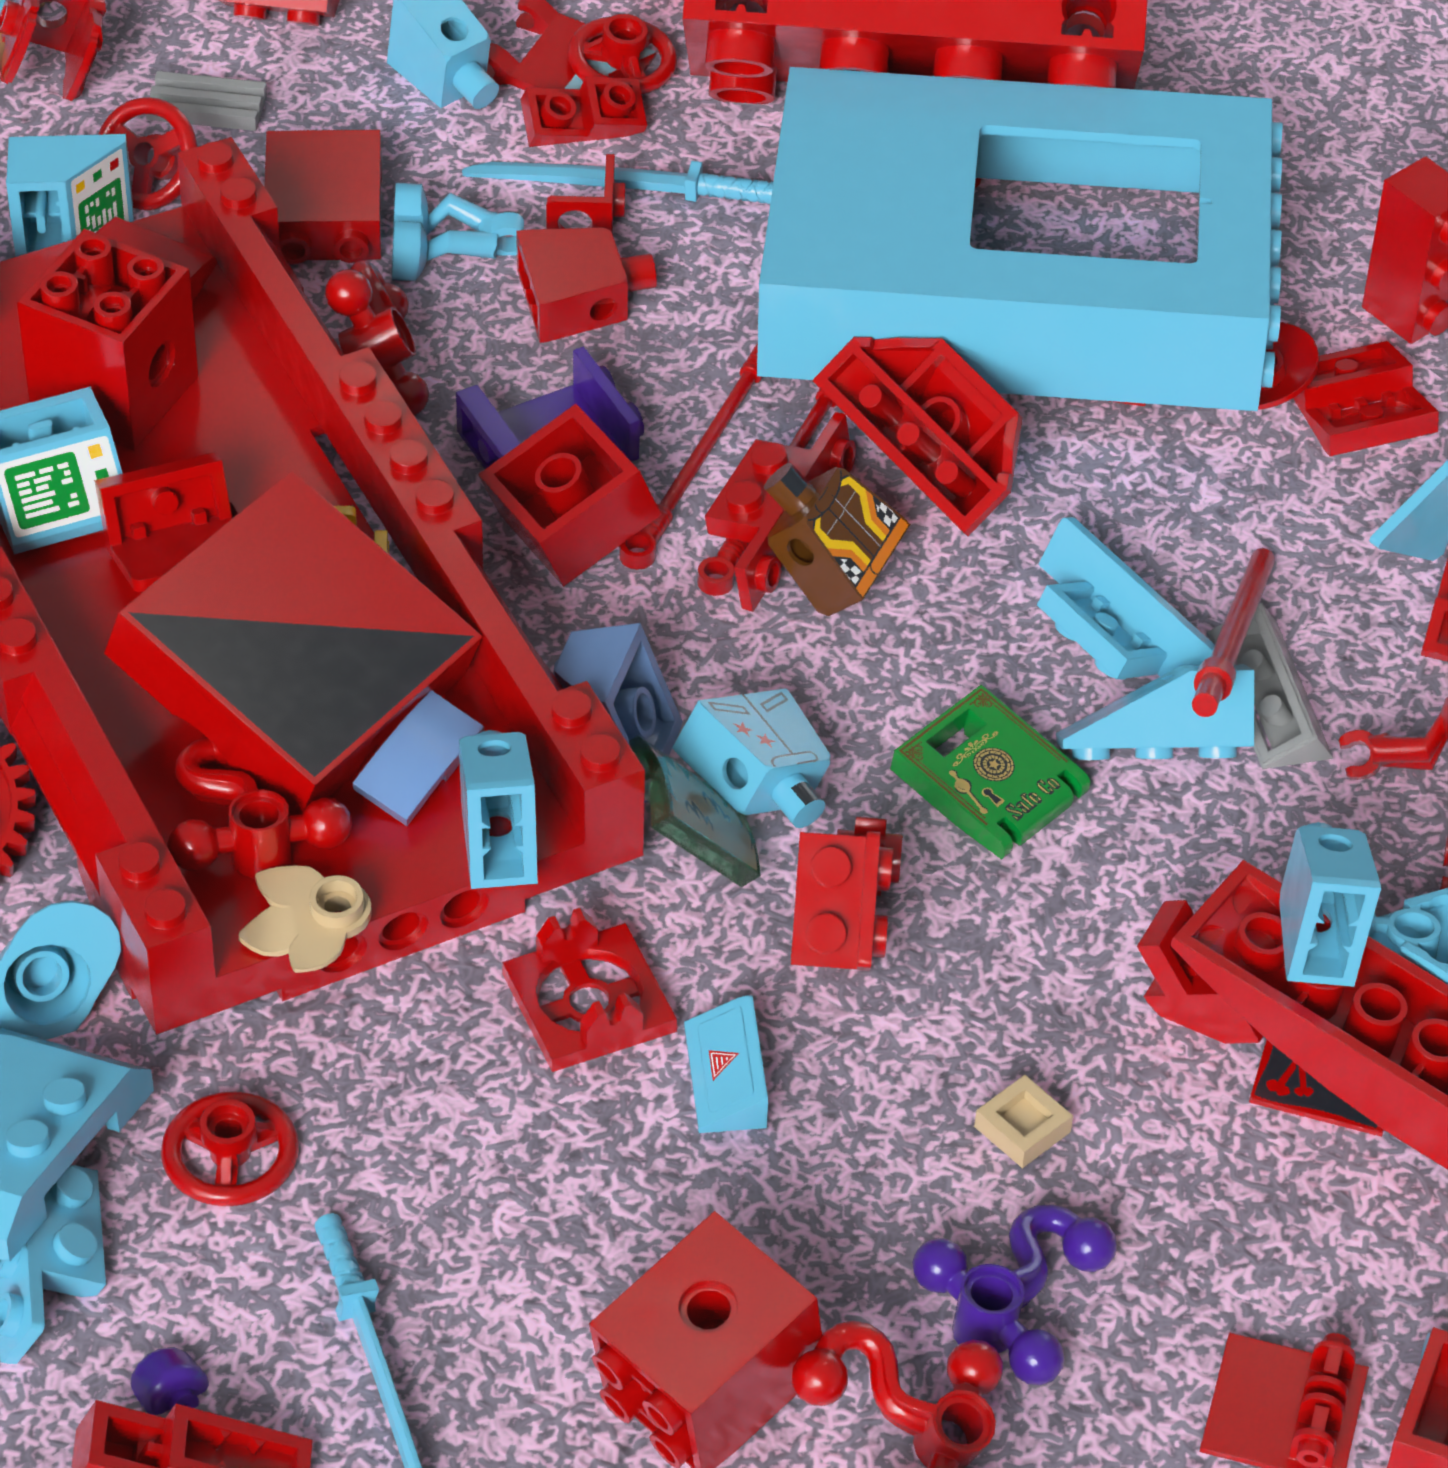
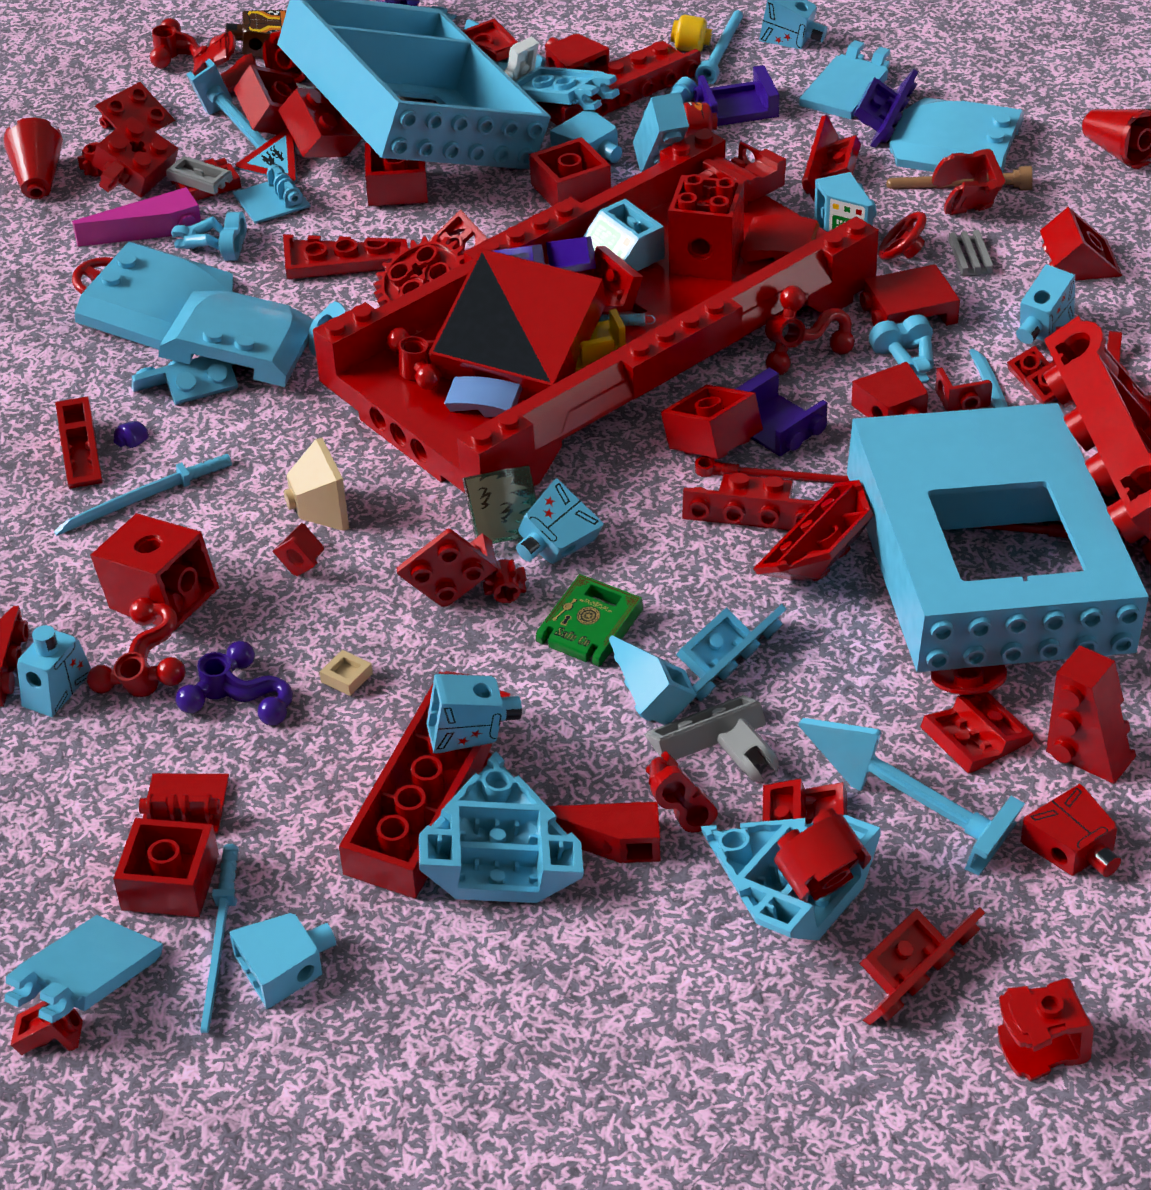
camera: 80 degrees right, 5 degrees down
(91, 567) = (568, 254): none -> dark purple panel
(229, 1131) = (262, 416): red piece -> none
(304, 916) = (374, 391): tan plate -> none
(498, 782) = (446, 415): medium azure torso -> none
(536, 1061) = (317, 488): none -> tan slope
(601, 1030) = (406, 487): red piece -> none
(625, 679) = (565, 456): medium blue slope -> none
(669, 1150) = (299, 550): none -> red bracket
(727, 1068) = (356, 567): medium azure slope -> none
(832, 535) = (726, 517): reddish brown torso -> none
(1217, 673) = (640, 657): bar -> none
(1343, 646) = (748, 749): none -> light grey piece

